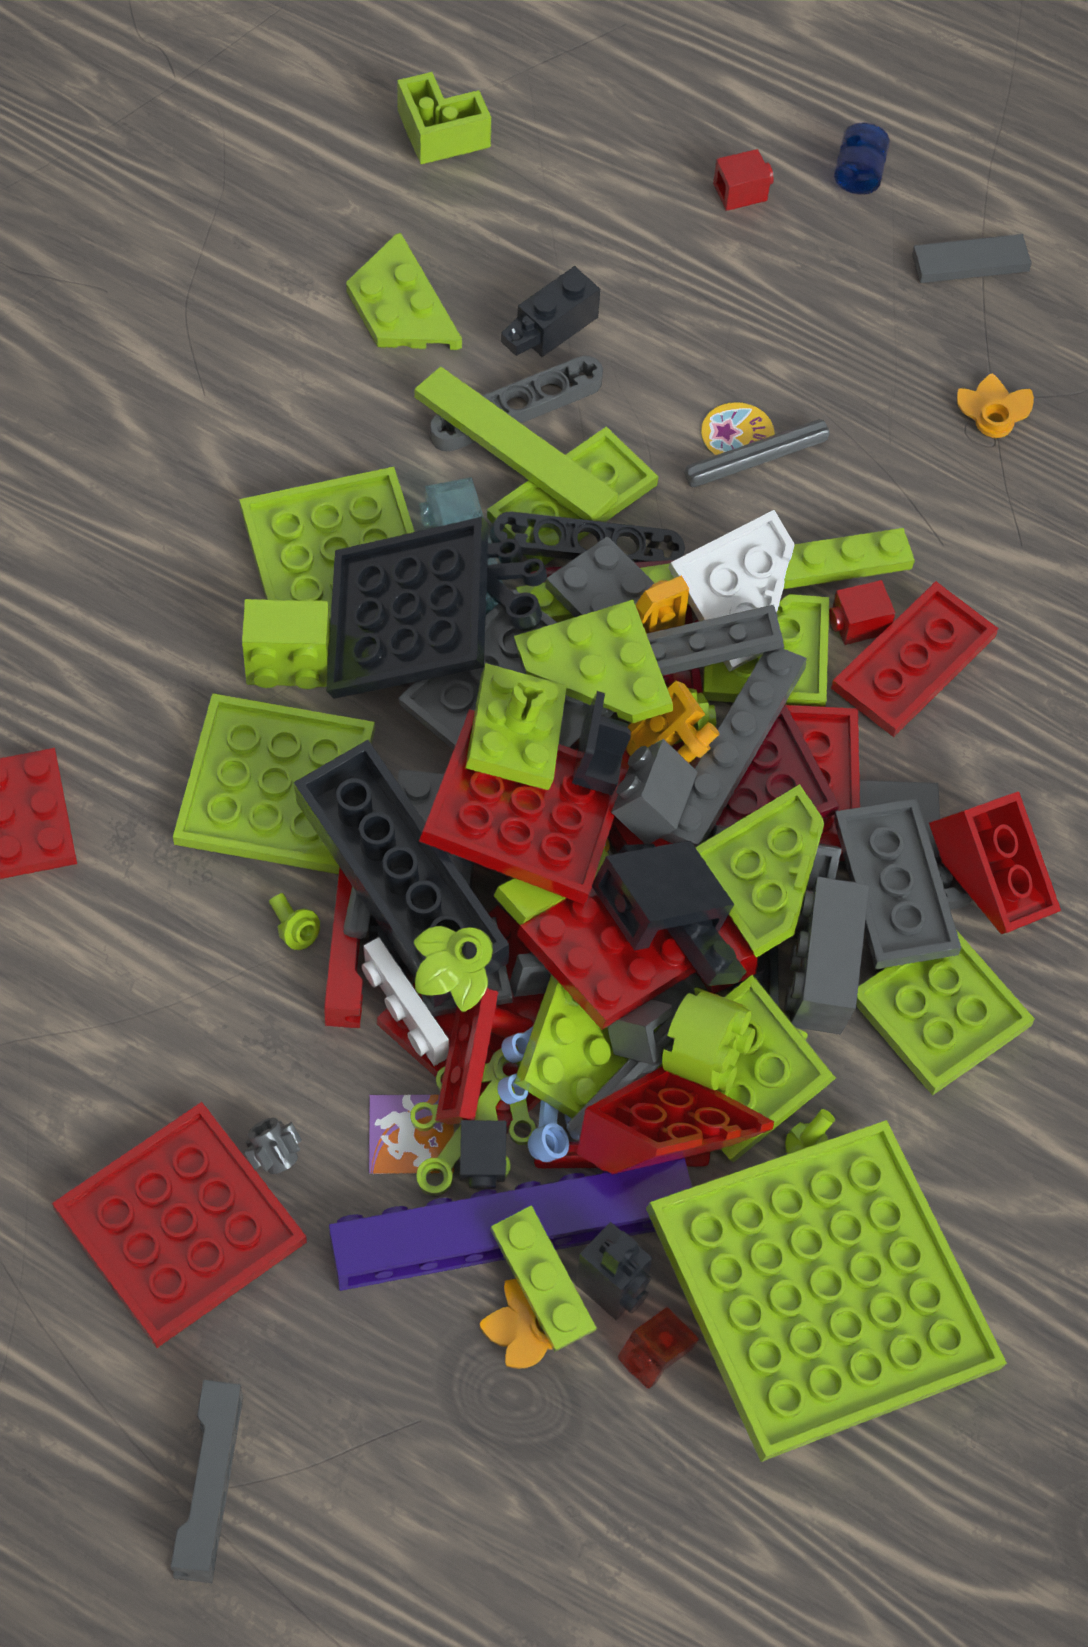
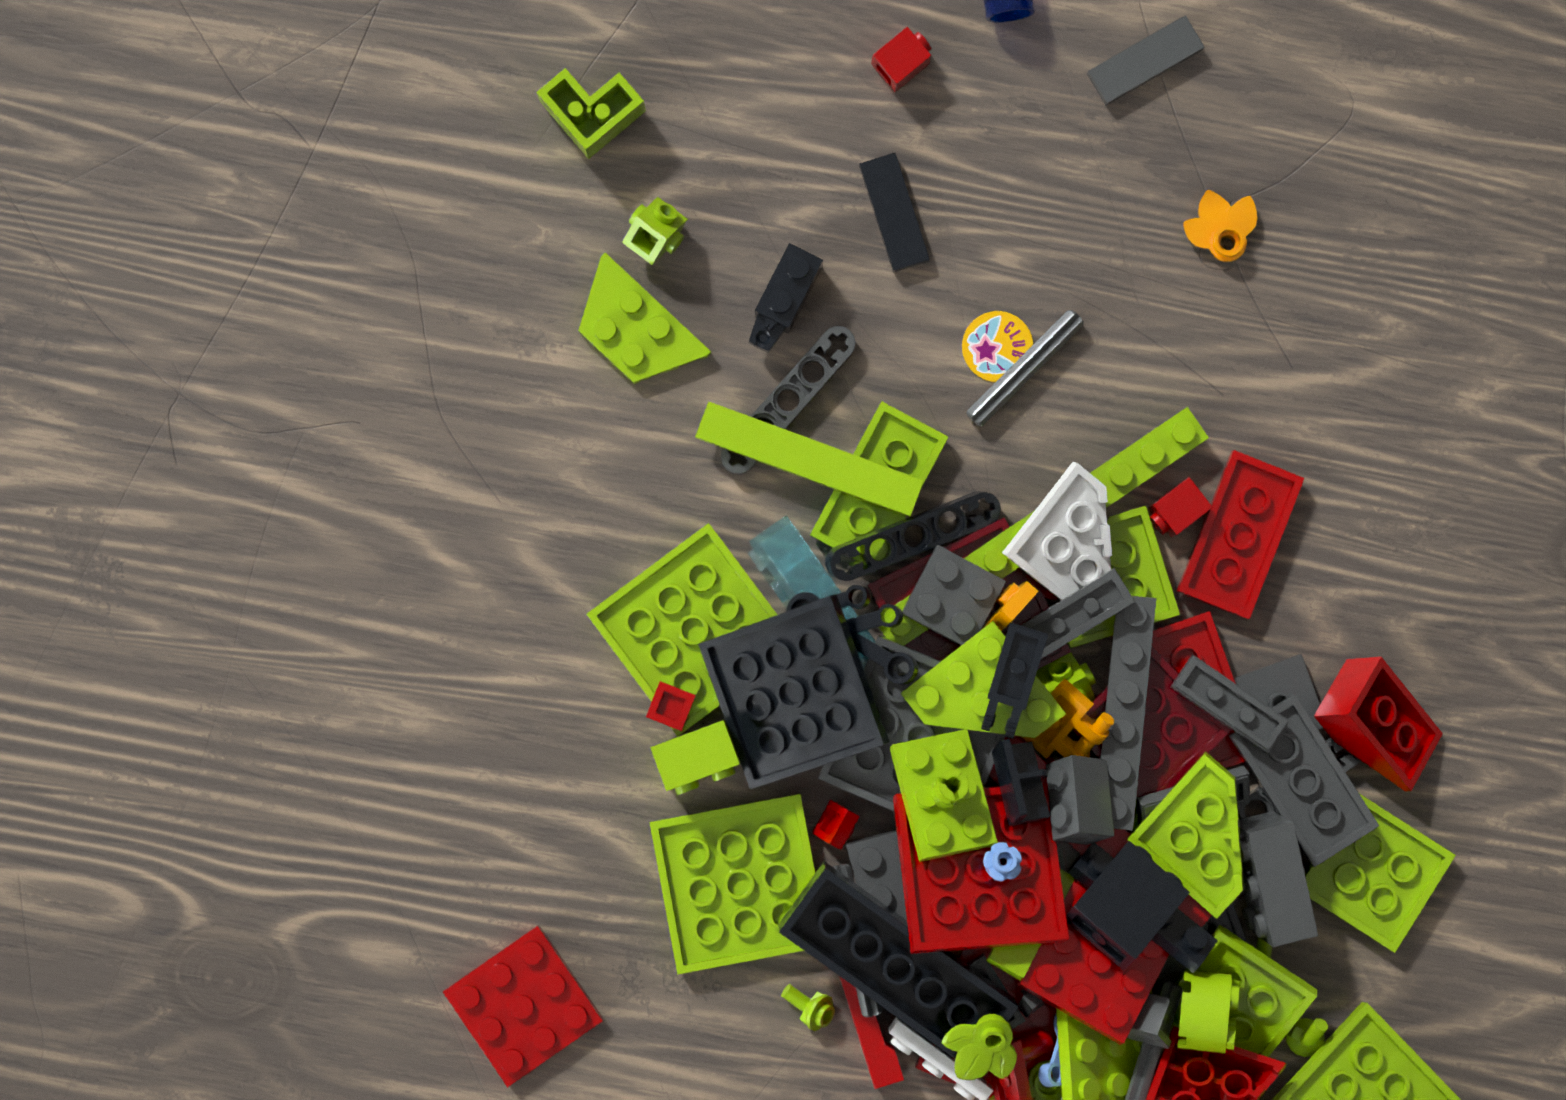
camera: 20 degrees left, 25 degrees up
(283, 586) = (670, 706): none -> red plate
(403, 759) = (836, 824): none -> red plate
(455, 224) = (655, 230): none -> lime brick
(550, 800) = (994, 867): none -> light blue plate
(632, 641) = (1015, 674): none -> black hinge
(684, 294) = (894, 212): none -> black tile
(845, 778) = (1229, 704): none -> dark grey tile

